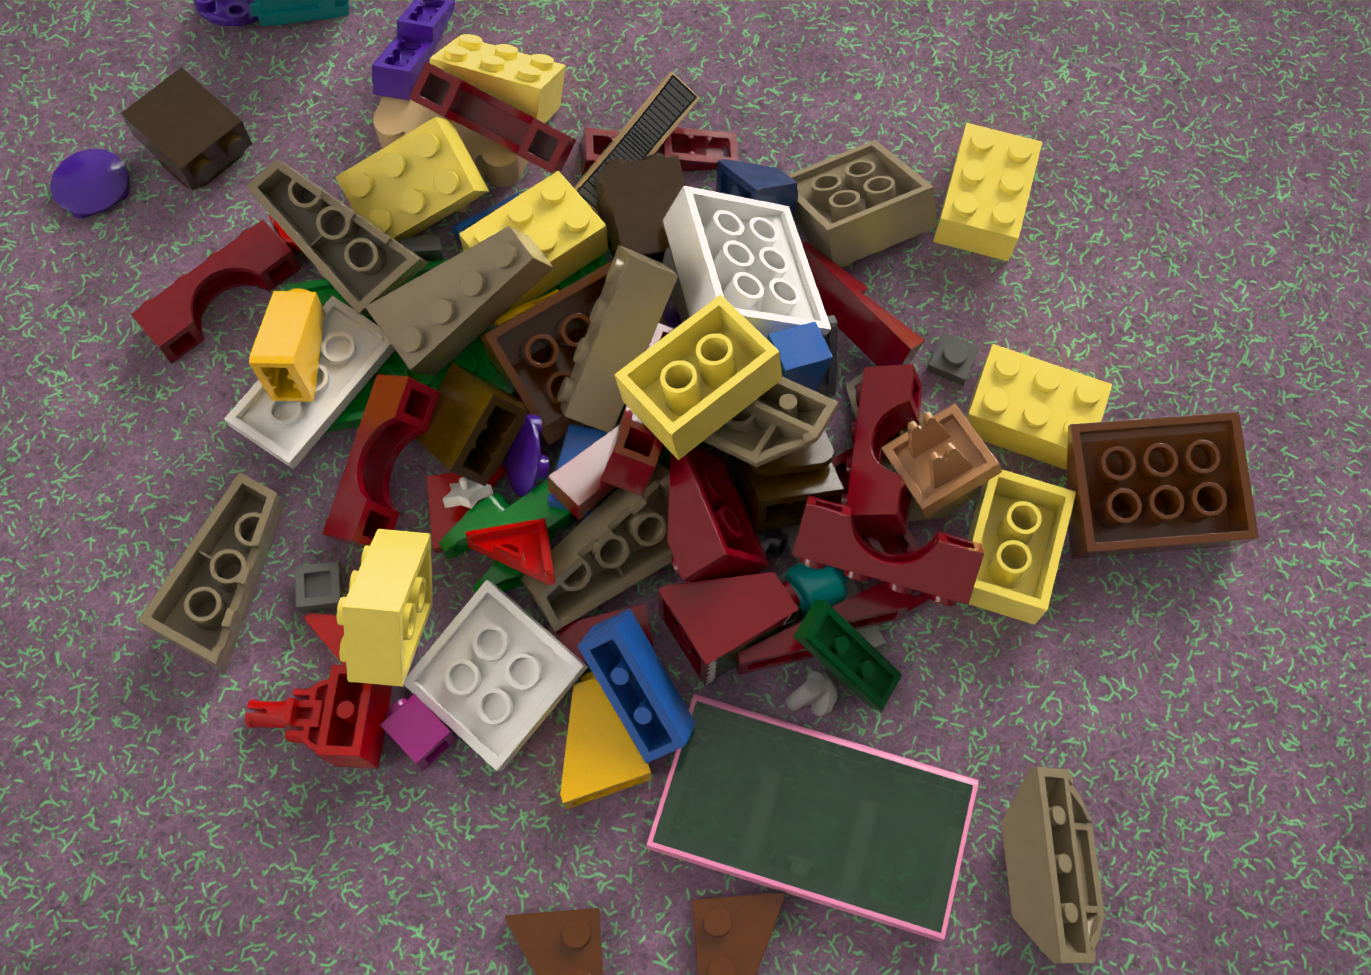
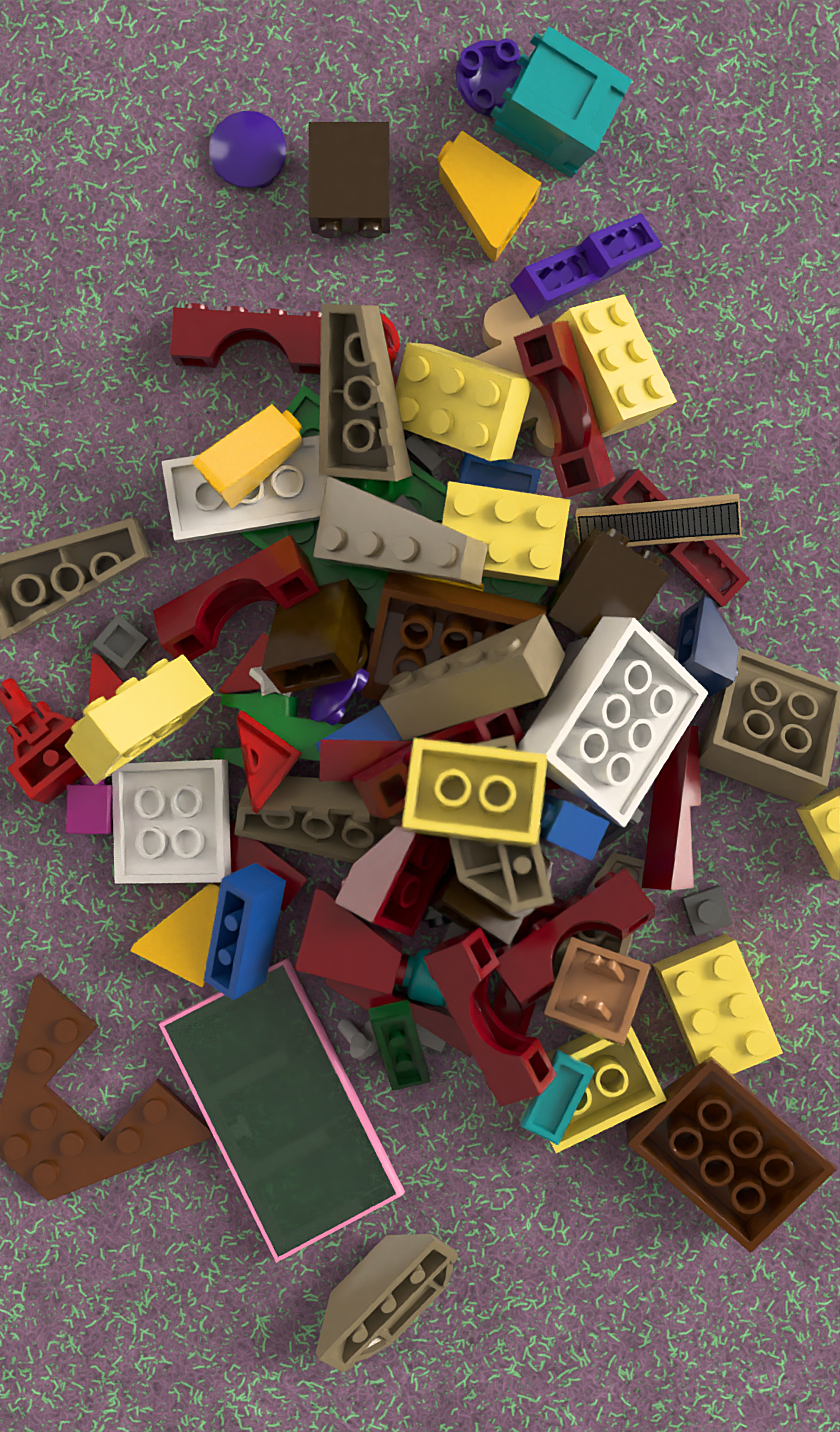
camera: 40 degrees right, 20 degrees up
(295, 63) = (486, 191): none -> yellow slope
(1002, 567) = (553, 1109): none -> teal tile

